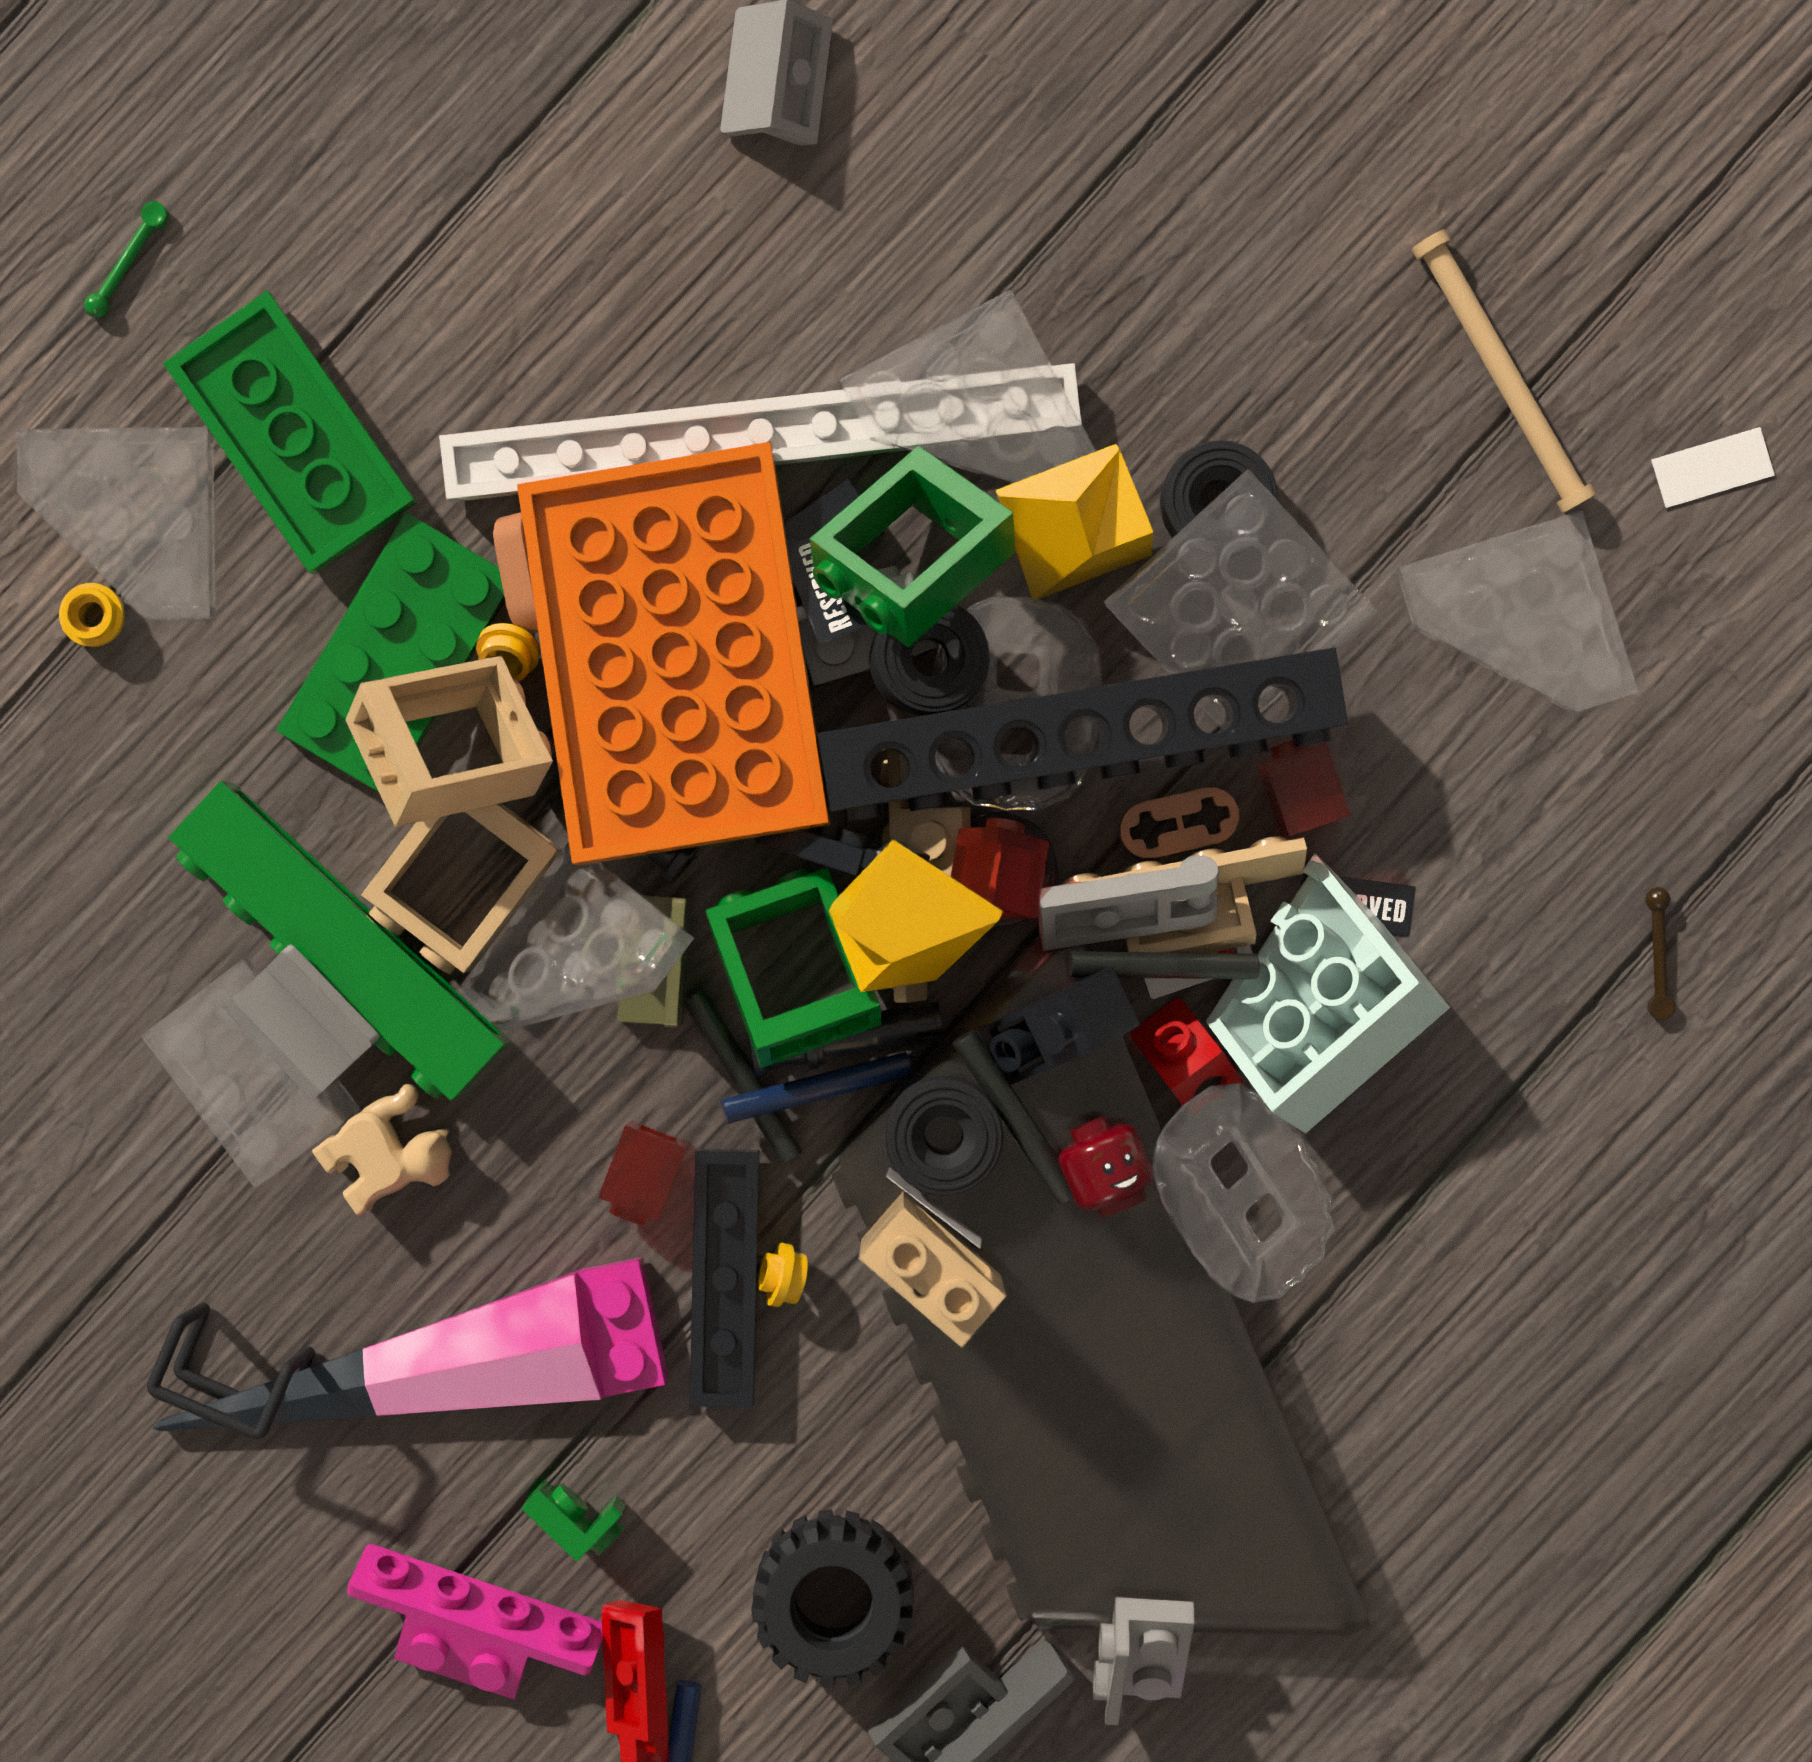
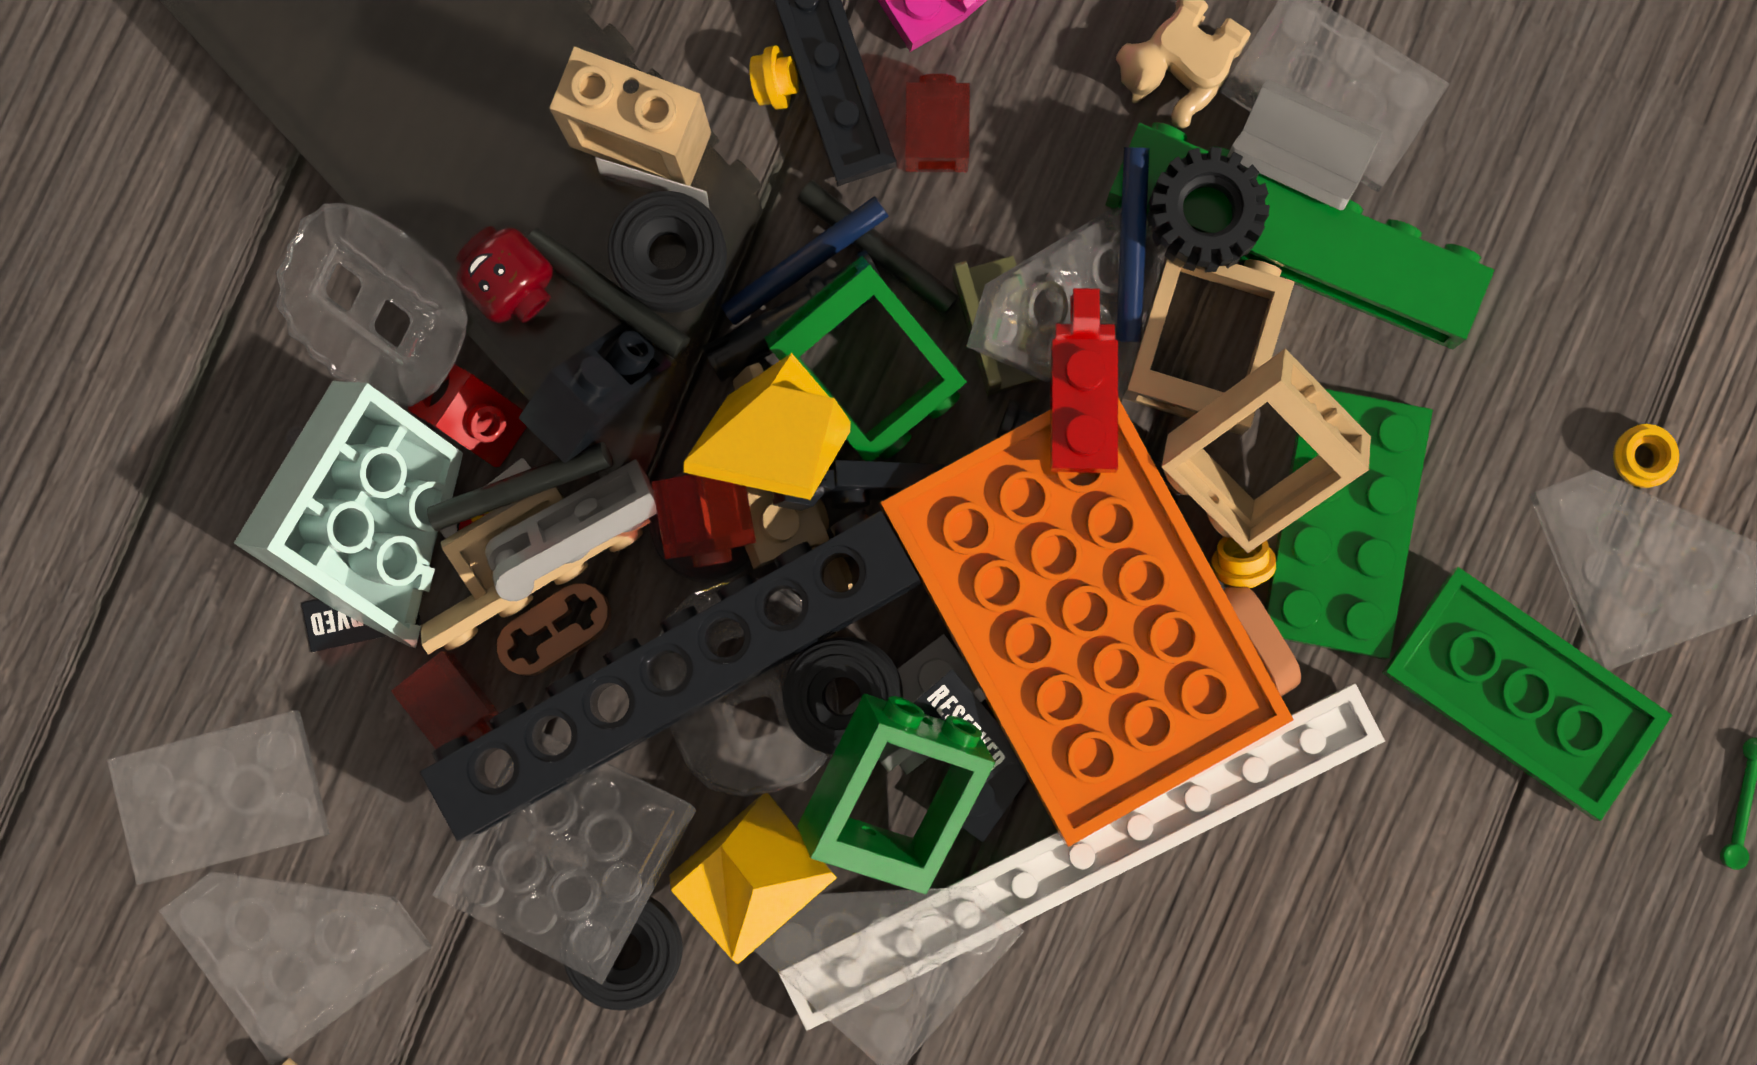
camera: 165 degrees right, 5 degrees down
(378, 996) = (1217, 172): none -> black tyre
(500, 985) = (1132, 244): none -> dark blue bar
(598, 858) = (1084, 390): none -> red hinge
(1547, 778) = (218, 797): none -> clear plate
(1660, 1005) = (41, 623): dark brown hinge -> none

